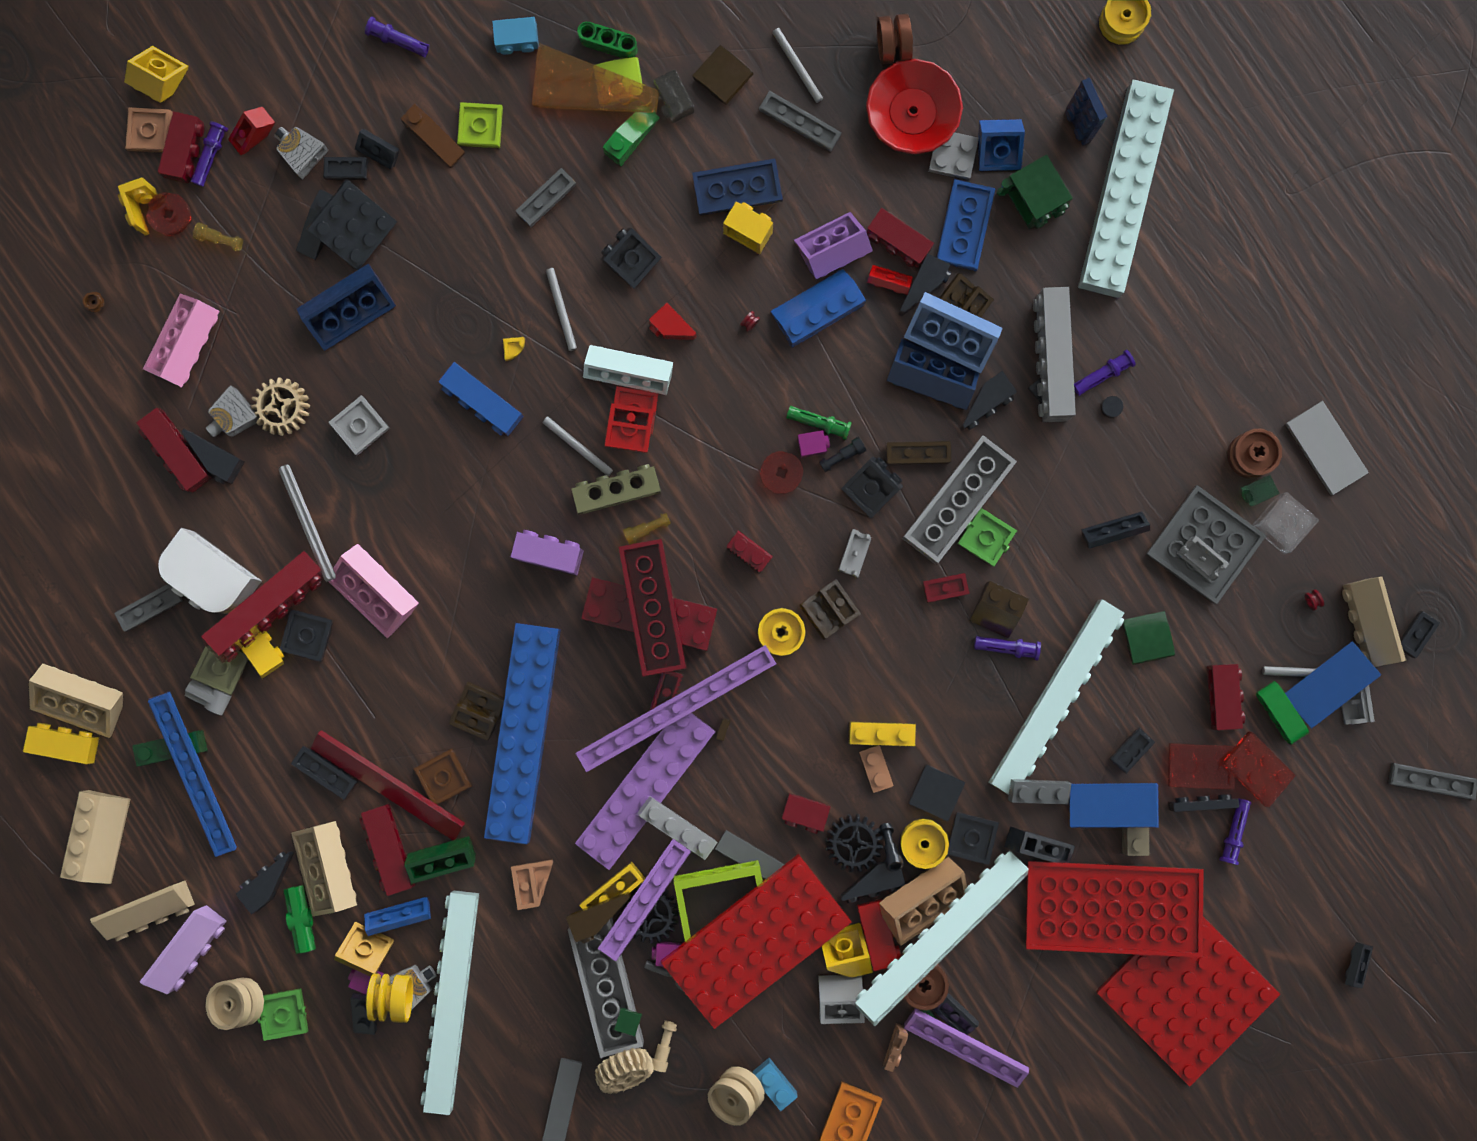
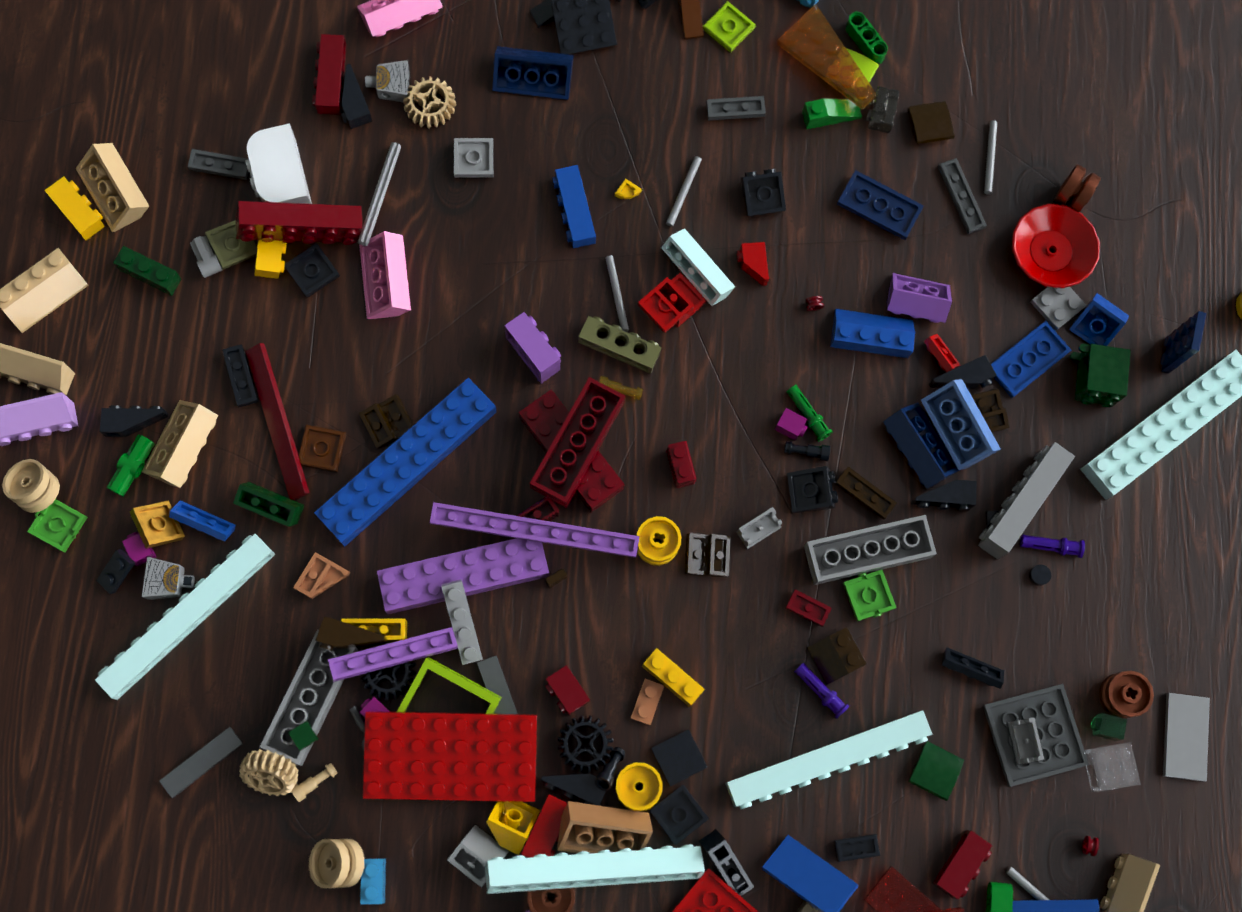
camera: 30 degrees right, 10 degrees down
(192, 774) = (146, 299): blue tile -> none
(387, 849) = (237, 465): dark red brick -> none
(388, 997) = (145, 570): yellow wheel -> none
(748, 227) = (866, 235): yellow brick -> none
(778, 484) = (761, 422): clear red plate -> none
(899, 238) = (971, 329): dark red brick -> none
(1039, 791) = (759, 819): dark grey plate -> none

